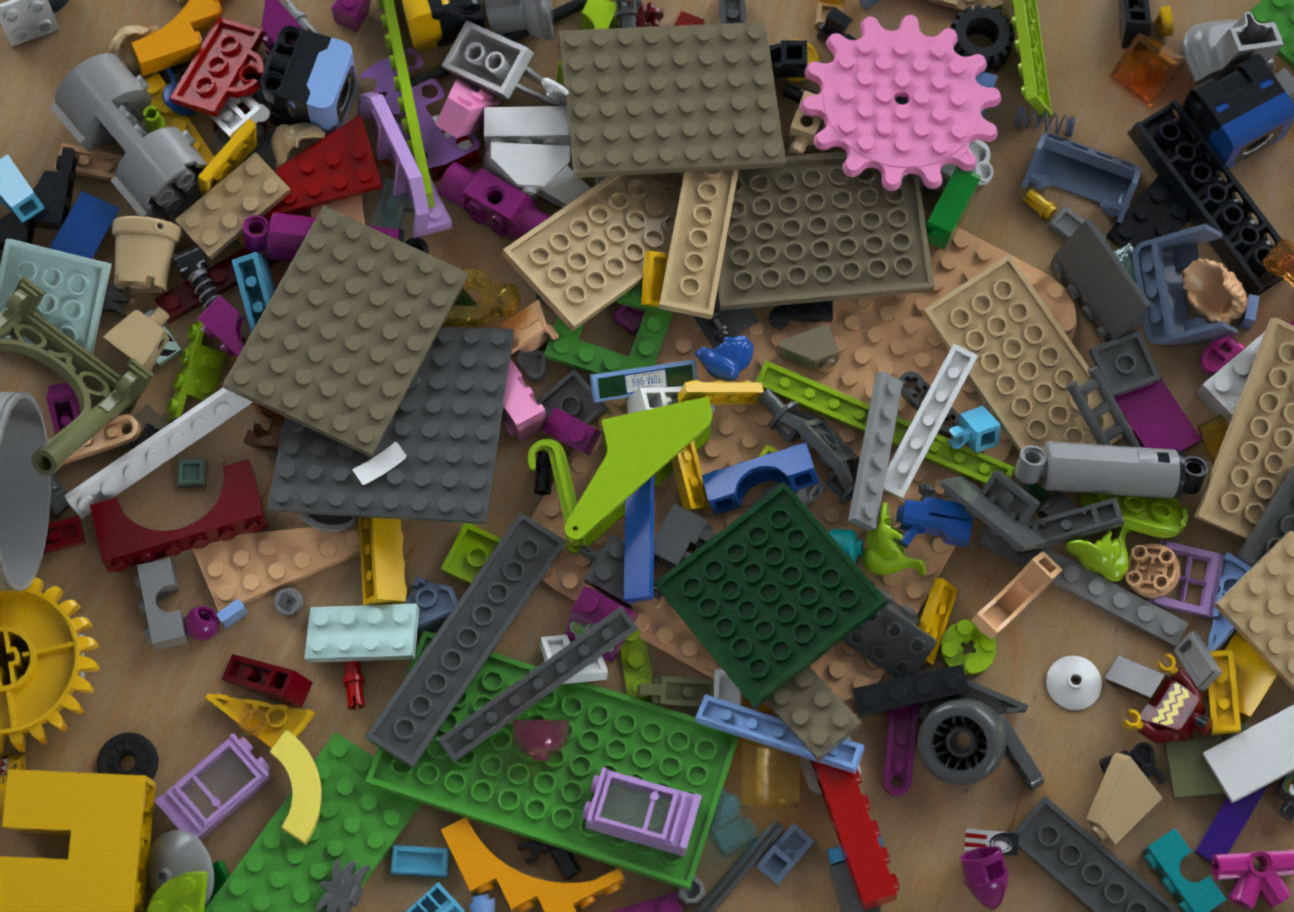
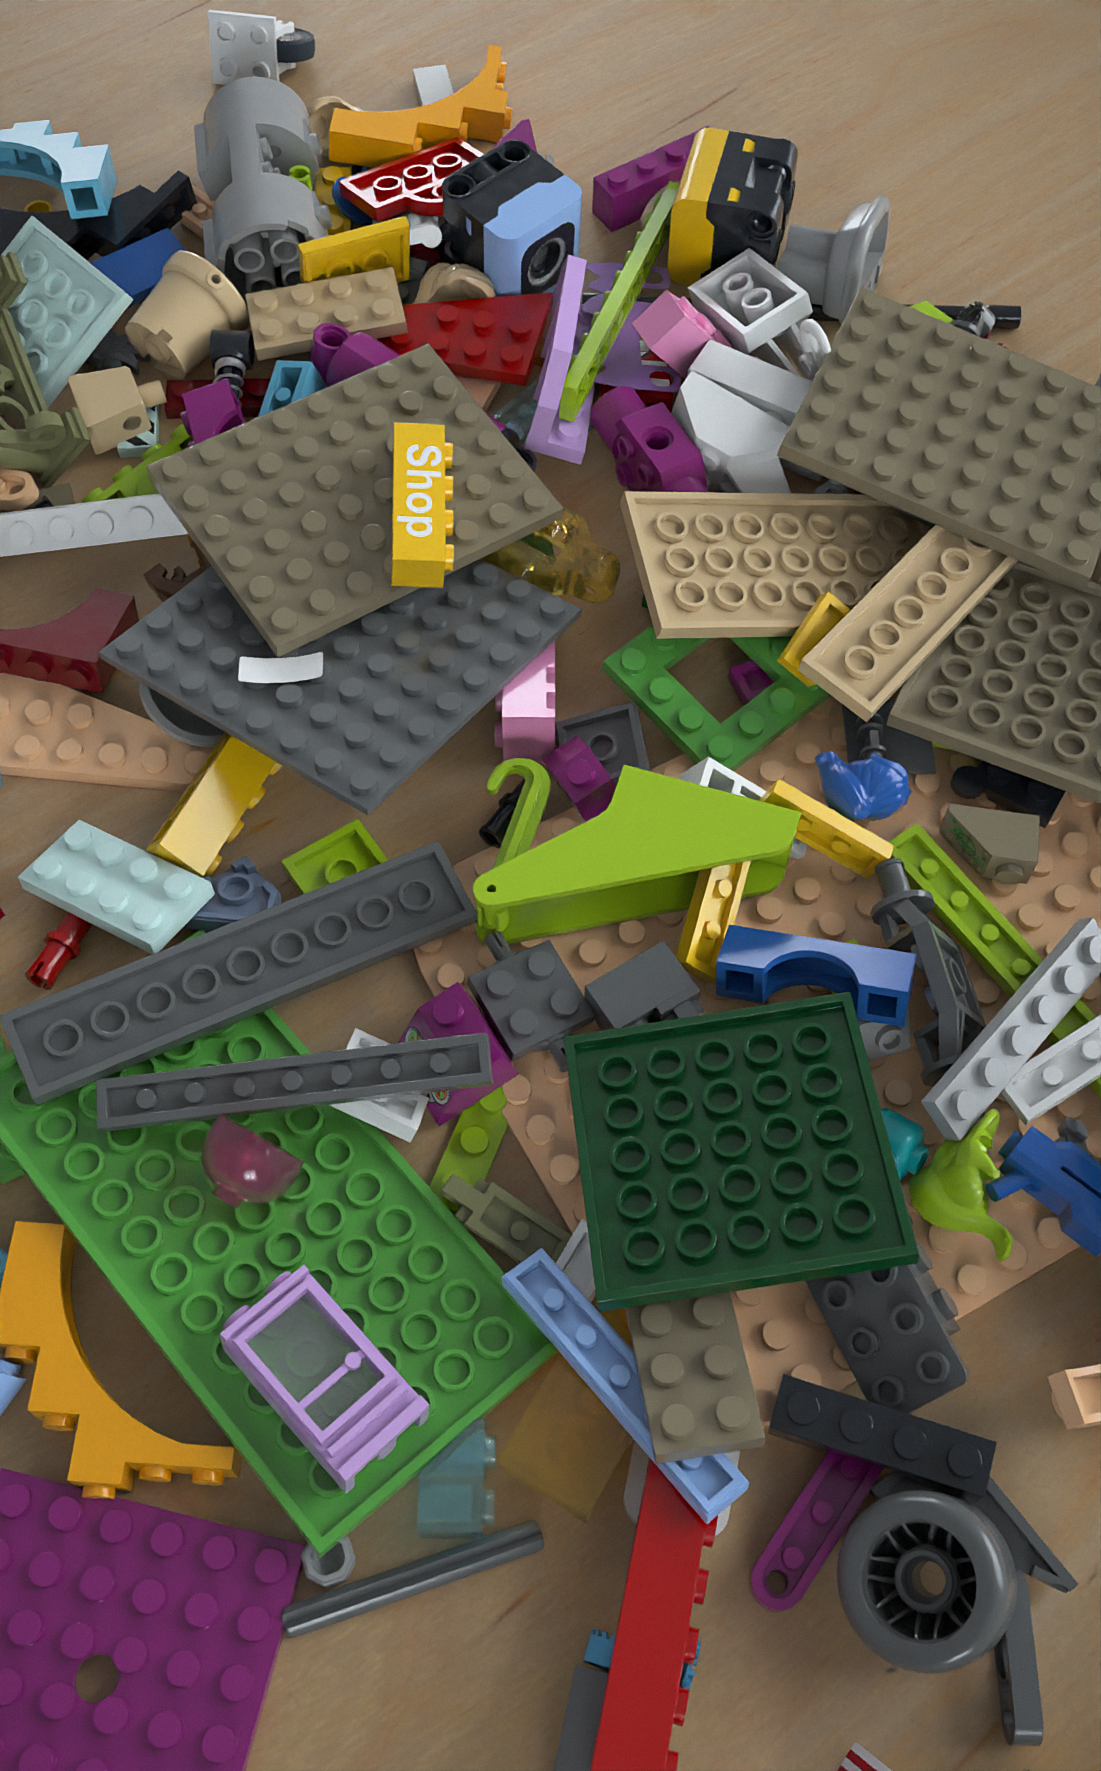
camera: 30 degrees right, 10 degrees down
(191, 473) = (61, 587): sand green tile -> none
(288, 601) = (57, 797): light grey tile -> none
(396, 323) = (419, 505): none -> yellow brick
(530, 328) = (605, 628): light nougat hat -> none
(532, 364) = (584, 677): light grey tile -> none
(563, 859) = (167, 1387): black bar -> none
(626, 382) = (686, 745): tile -> none
(639, 544) = (579, 965): blue tile -> none
(785, 853) = (520, 1592): sand blue slope -> none
(937, 613) = (993, 1336): yellow plate -> none
(952, 651) = (1027, 1396): lime plate -> none

